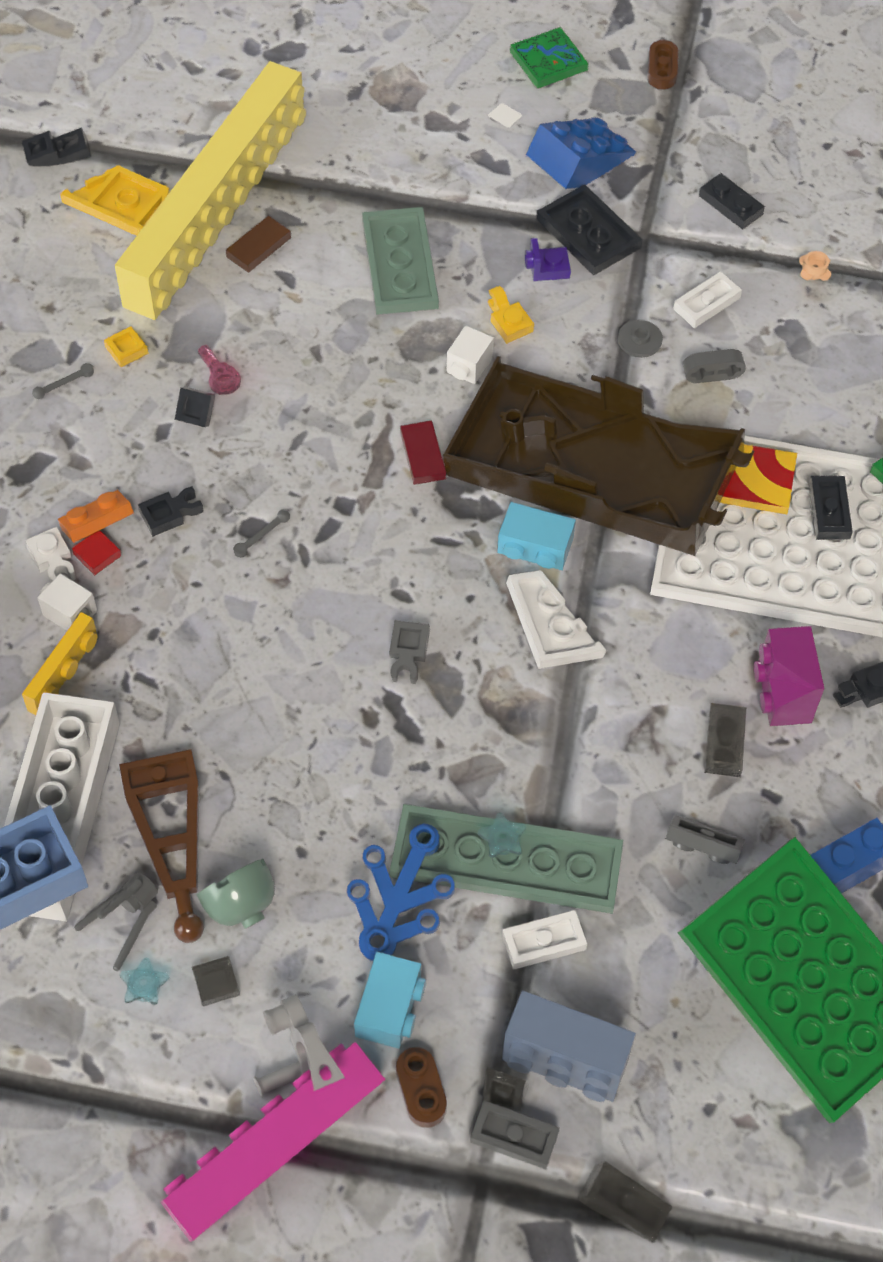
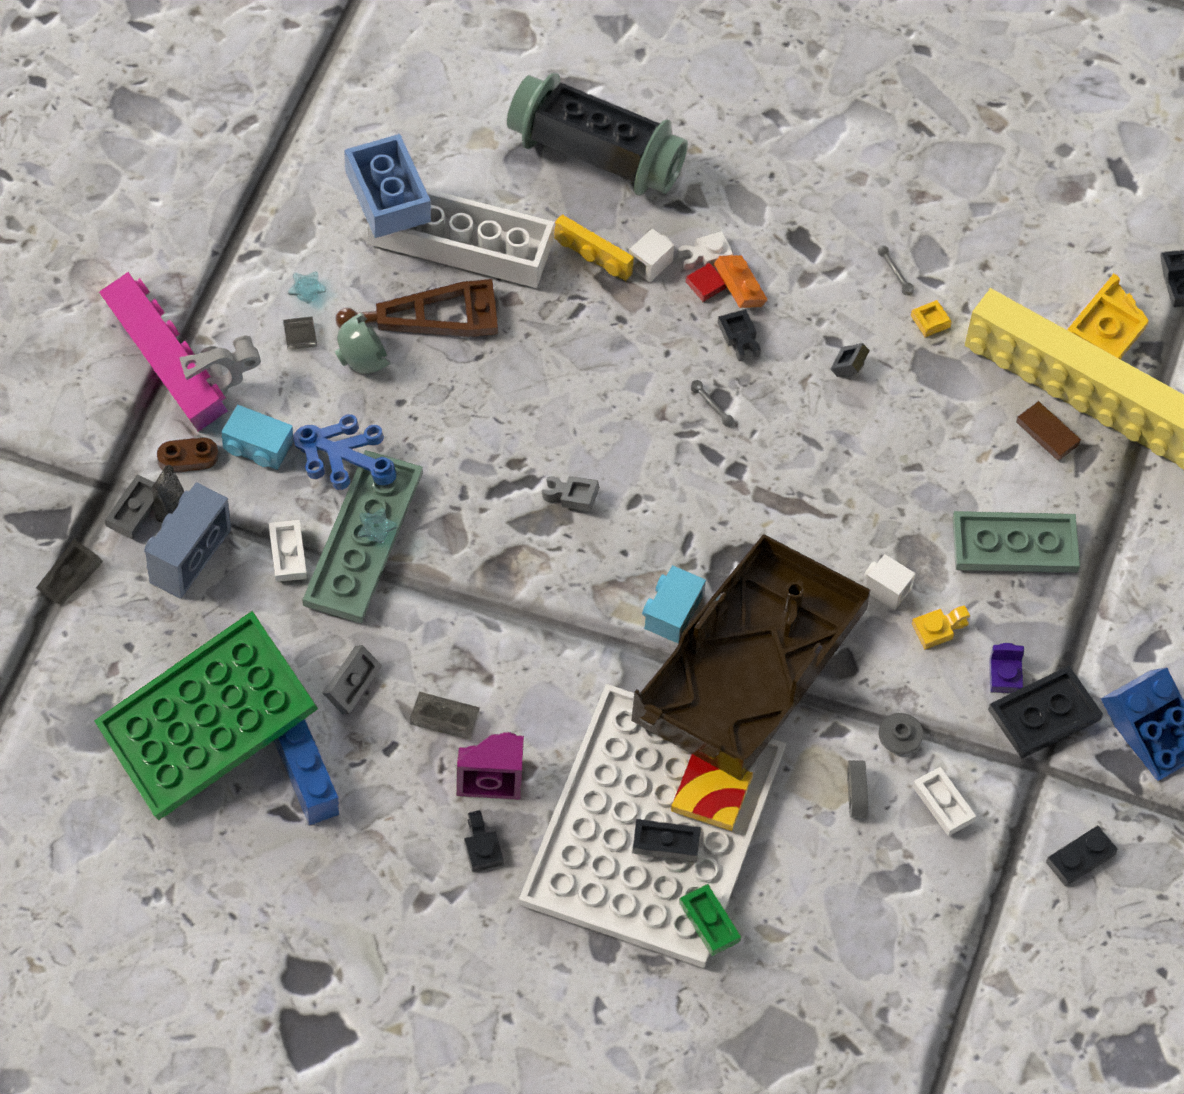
camera: 95 degrees right, 0 degrees up
(133, 896) = (377, 283): dark grey plant -> none
(223, 377) = (884, 386): clear pink plate -> none
(422, 452) = (792, 532): dark red tile -> none
(548, 624) = (584, 602): white wing -> none
(815, 266) = (984, 905): light nougat plate -> none

